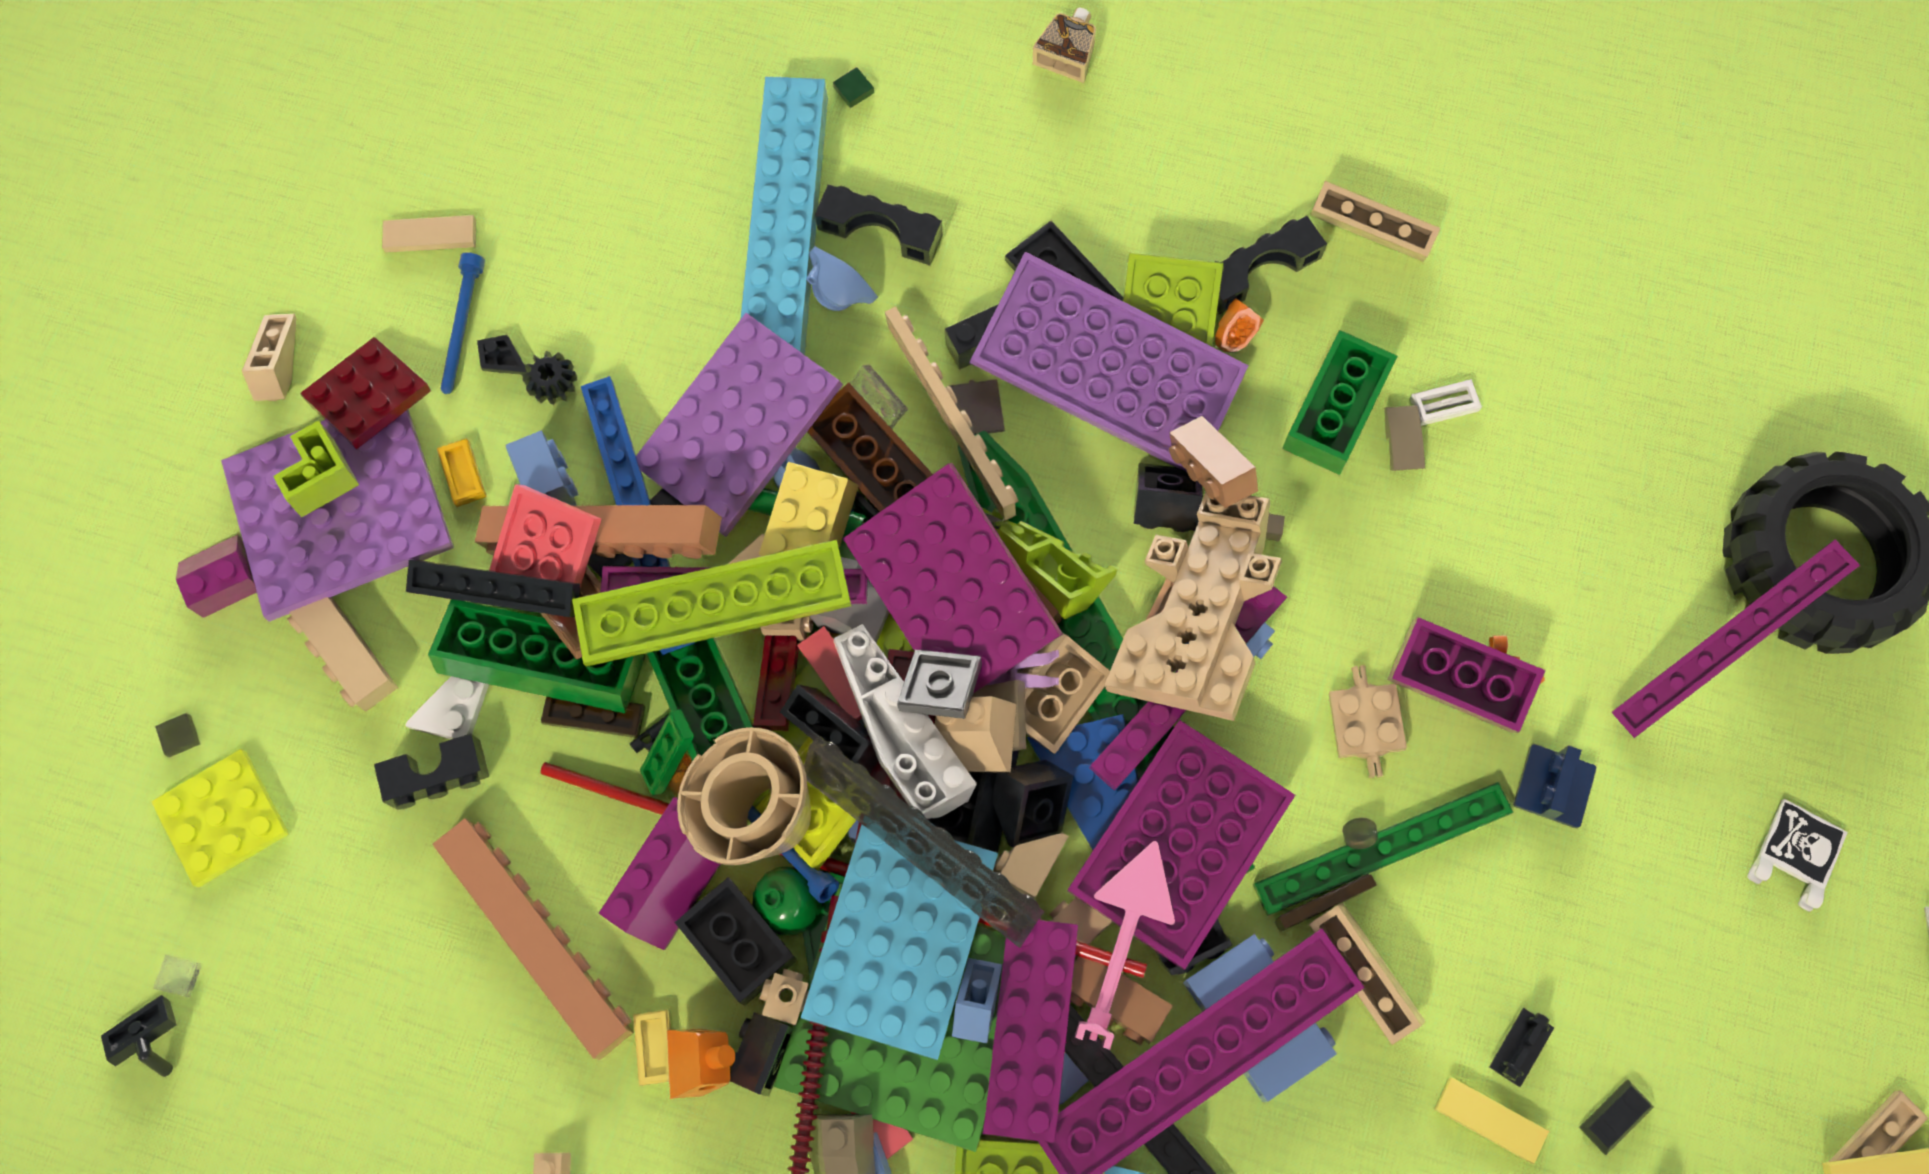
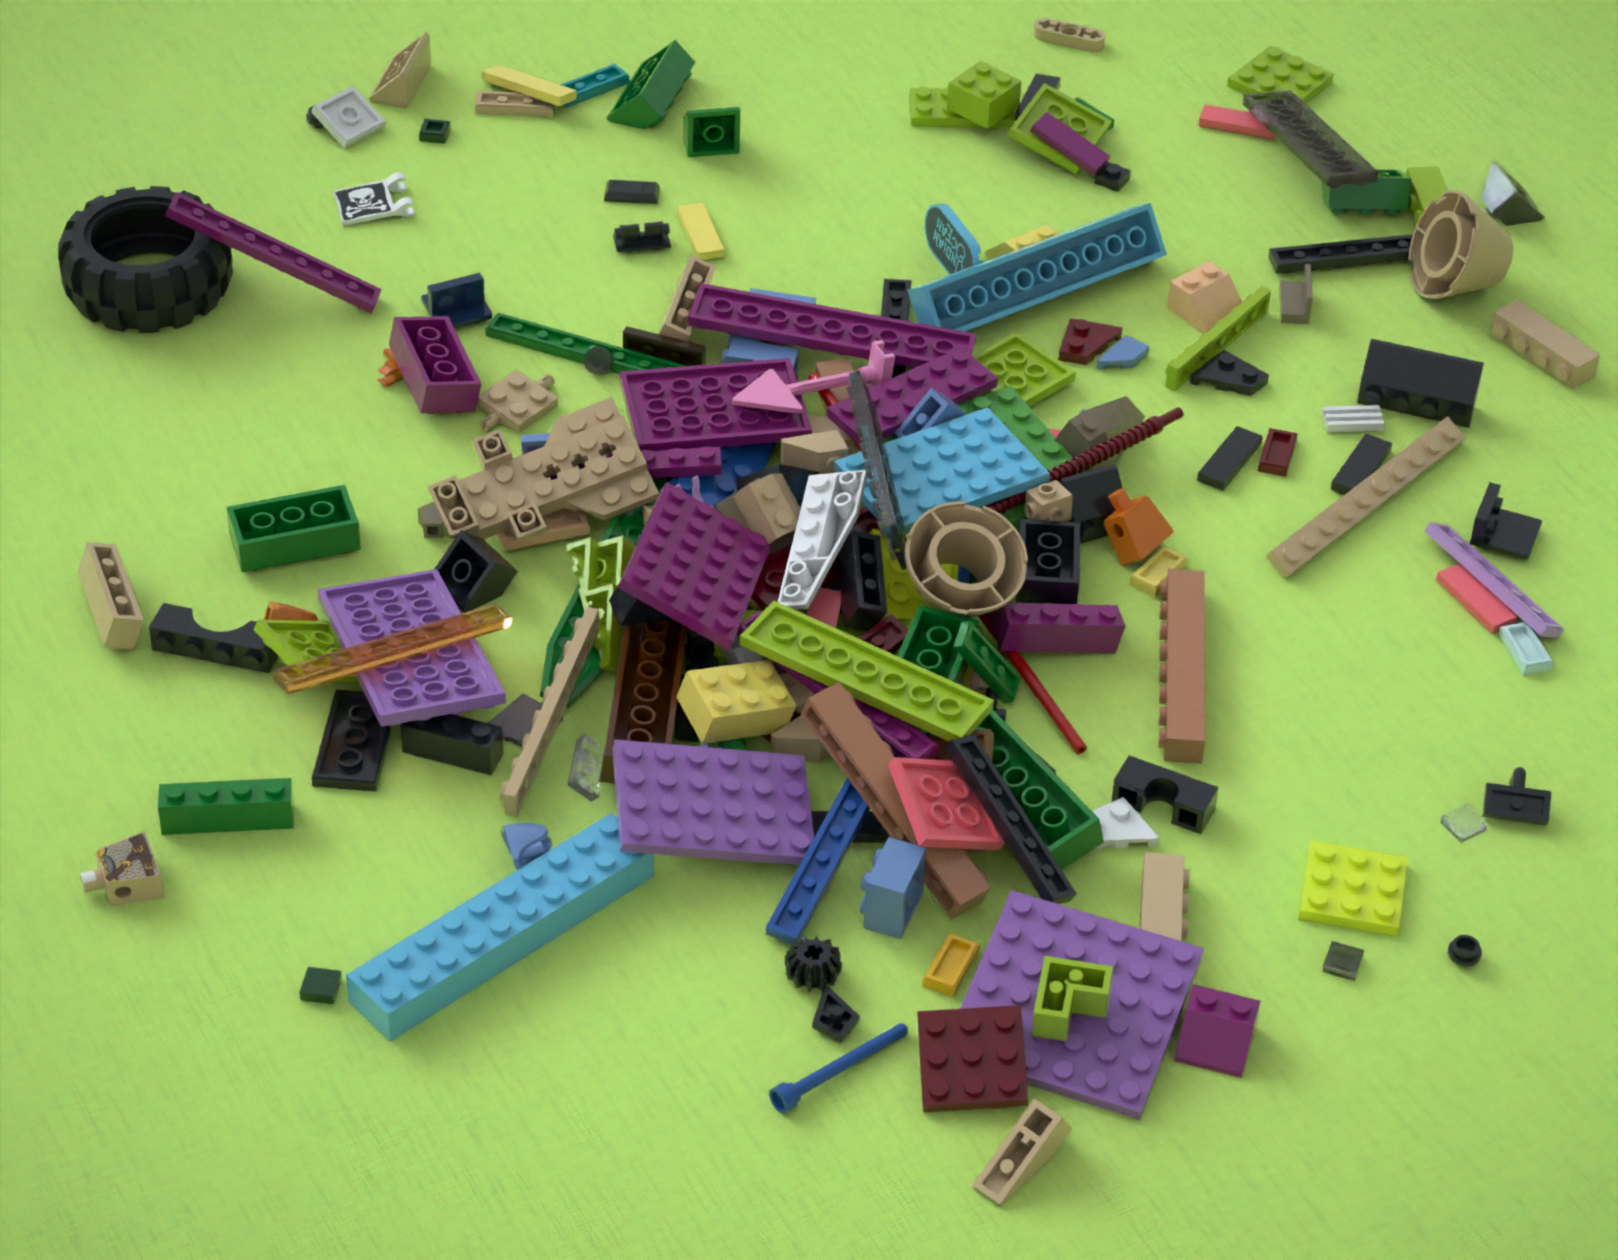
camera: 140 degrees left, 30 degrees down
(86, 826) = (1465, 950): none -> black plate
(429, 233) = (793, 1155): tan tile -> none
(846, 211) = (422, 842): black arch -> none
(939, 684) = (770, 524): tile -> none
(1069, 142) = (226, 806): none -> green brick
(1100, 332) = (391, 649): none -> clear orange tile
(1213, 462) = (431, 533): brick -> none
(1404, 437) = (280, 486): dark tan slope -> none
(1472, 396) = (219, 498): white tile -> none
(1885, 1015) = (434, 131): none -> dark green tile

